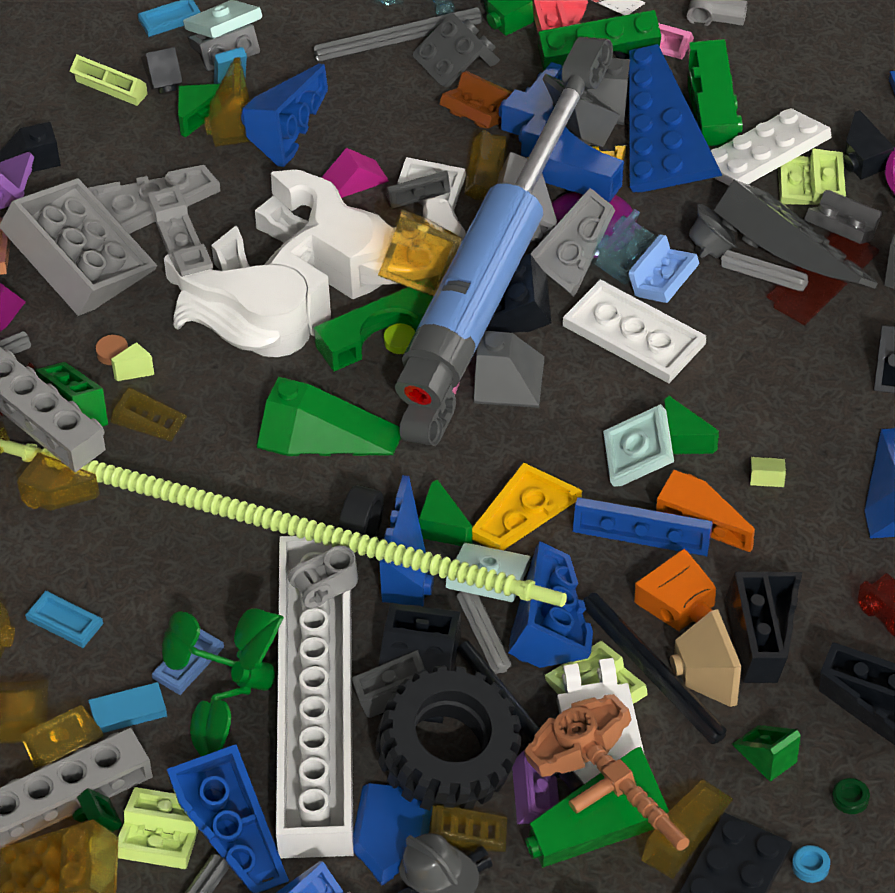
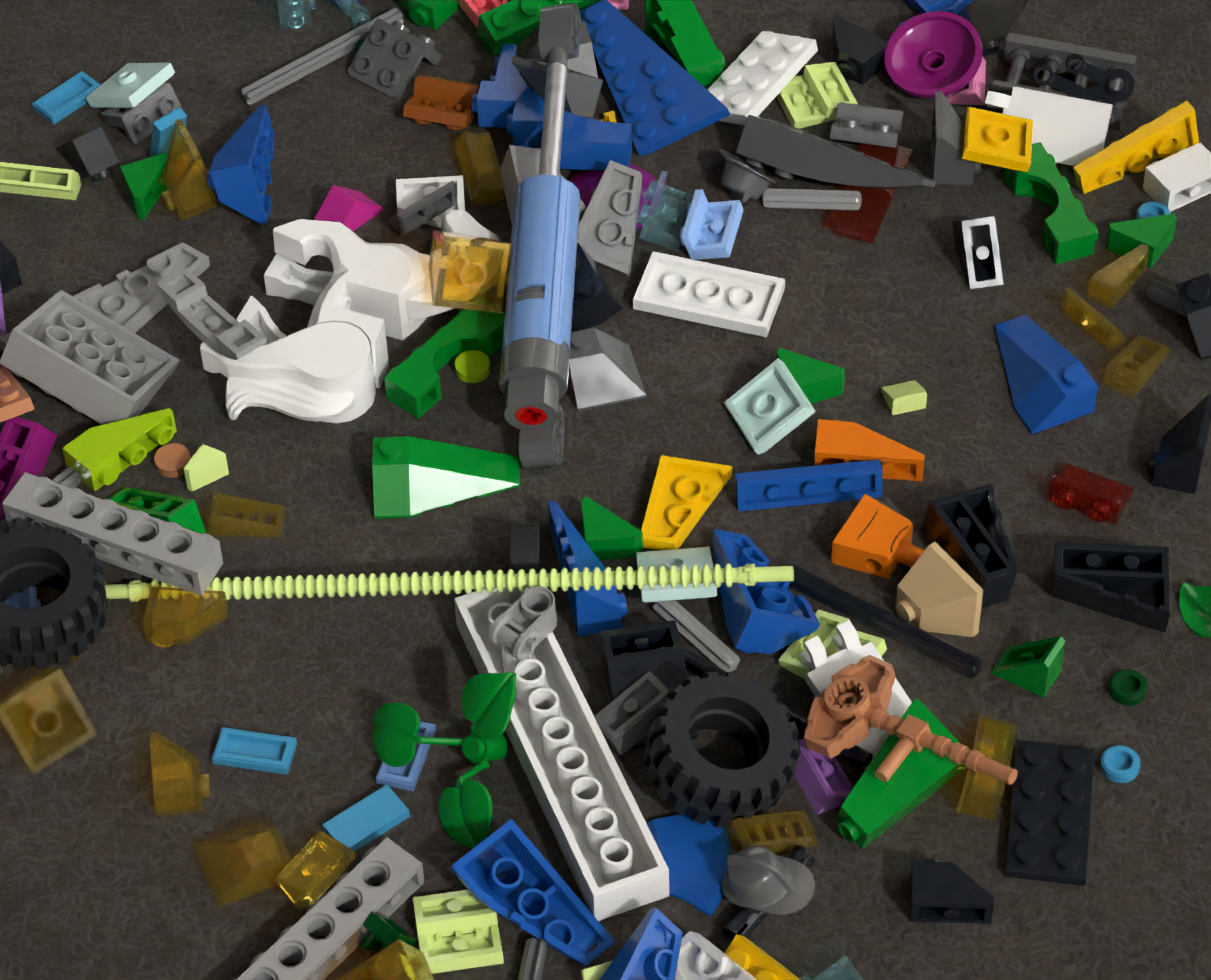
camera: 20 degrees left, 0 degrees up
(71, 324) = (113, 447): none -> lime slope

